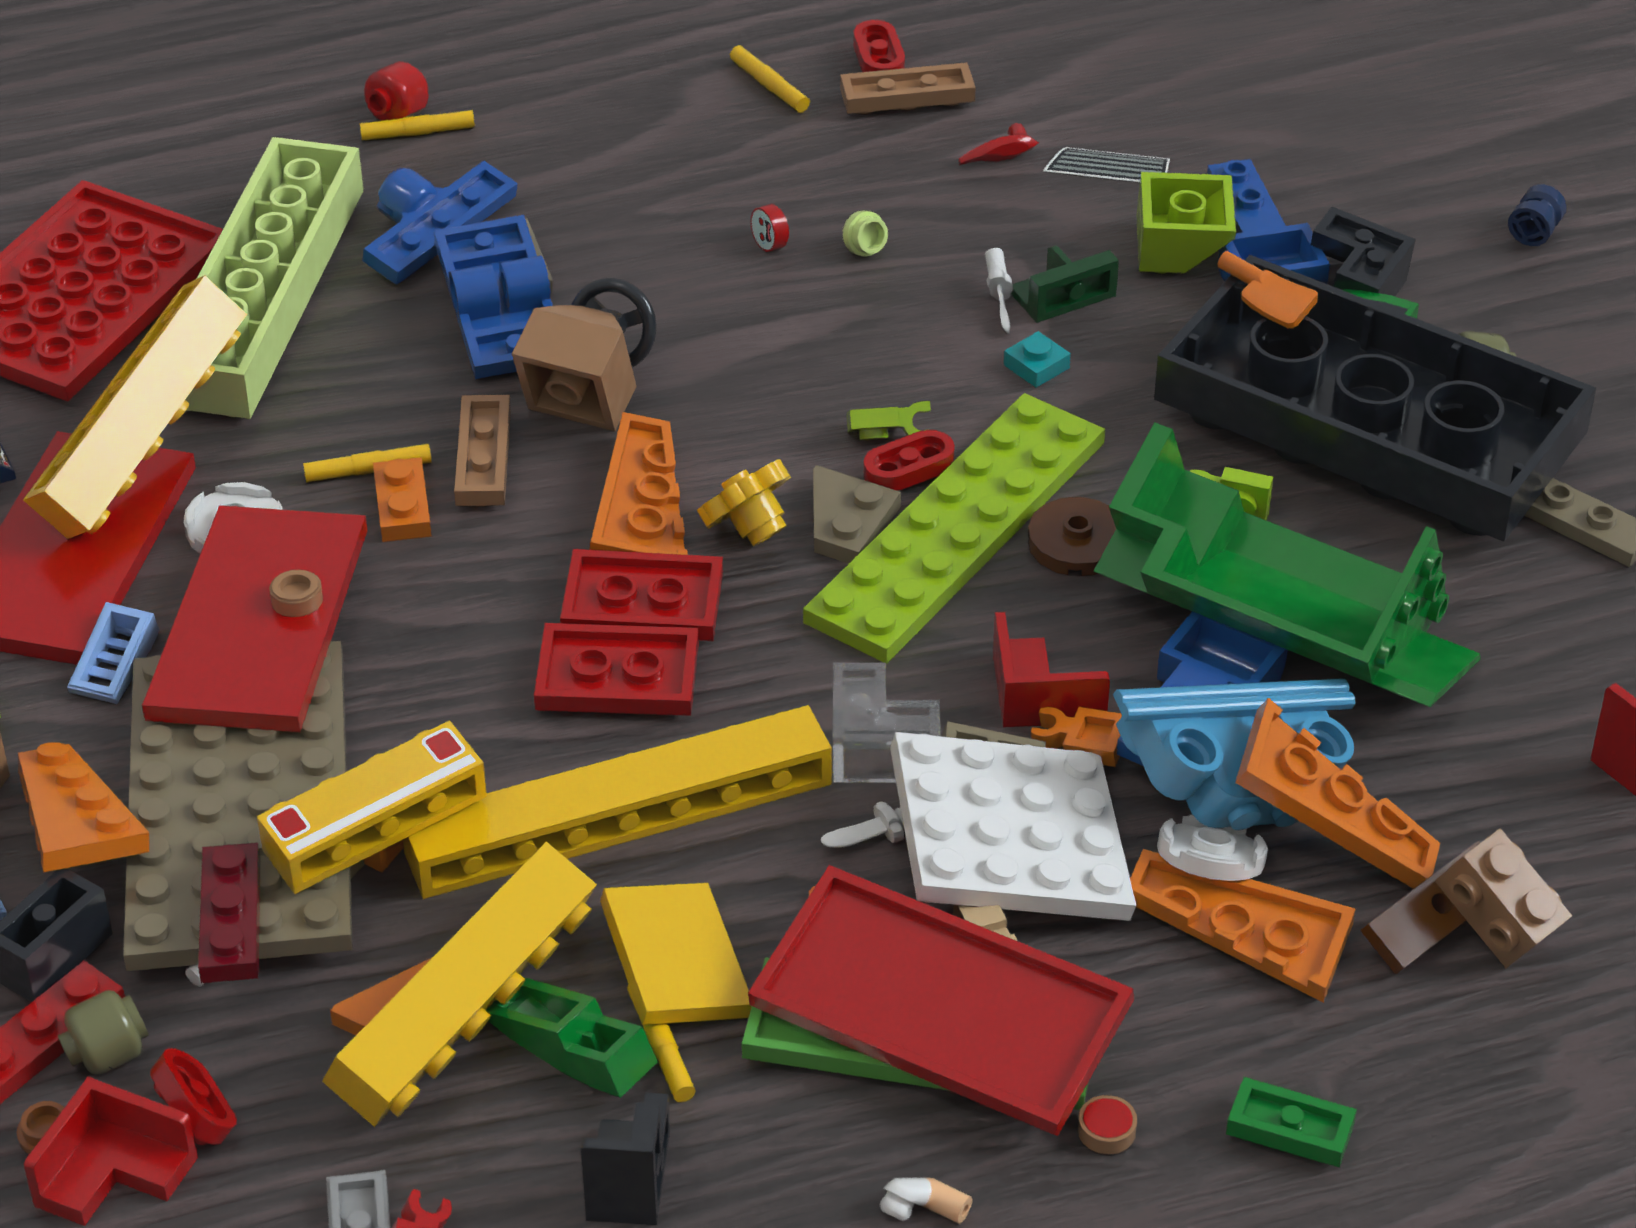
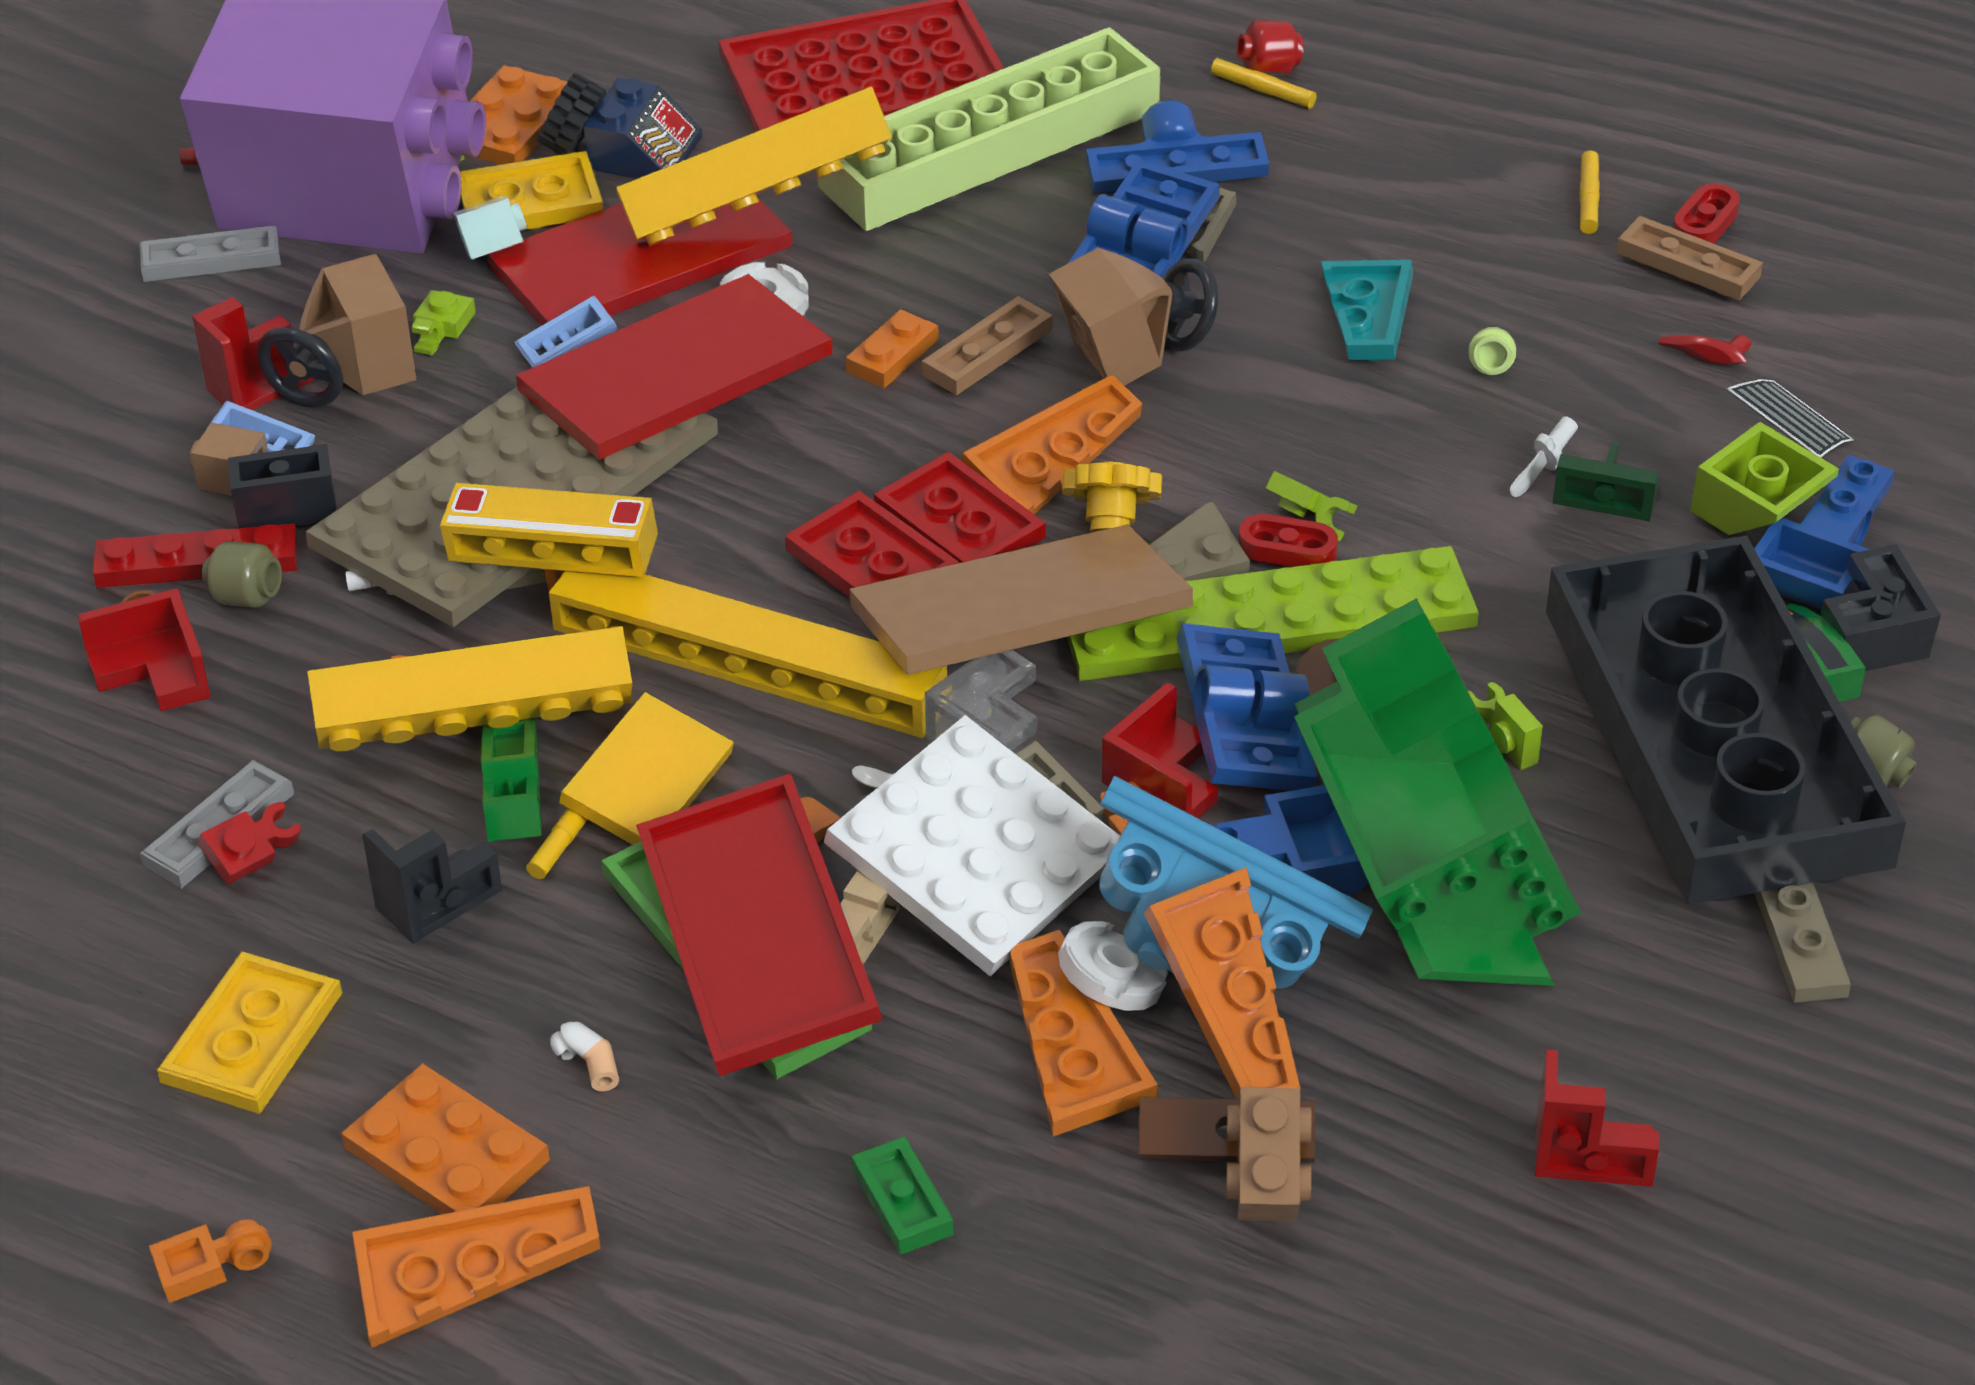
camera: 45 degrees right, 0 degrees up
(75, 811) = (391, 418): orange wing -> none
(191, 1089) = (241, 652): red plate -> none
(229, 913) = (383, 544): dark red plate -> none
(296, 593) = (706, 361): medium nougat tile -> none
(361, 463) = (892, 304): yellow piece -> none
(730, 249) = (1369, 304): none -> teal wing
(769, 227) = (1421, 304): tile -> none
(795, 624) = (1019, 598): none -> medium nougat tile
(1037, 359) = (1505, 529): teal plate -> none
(1052, 597) = (1246, 707): none -> blue plate
(1107, 1124) = (779, 1100): tile -> none
(1269, 293) = (1712, 577): orange piece -> none

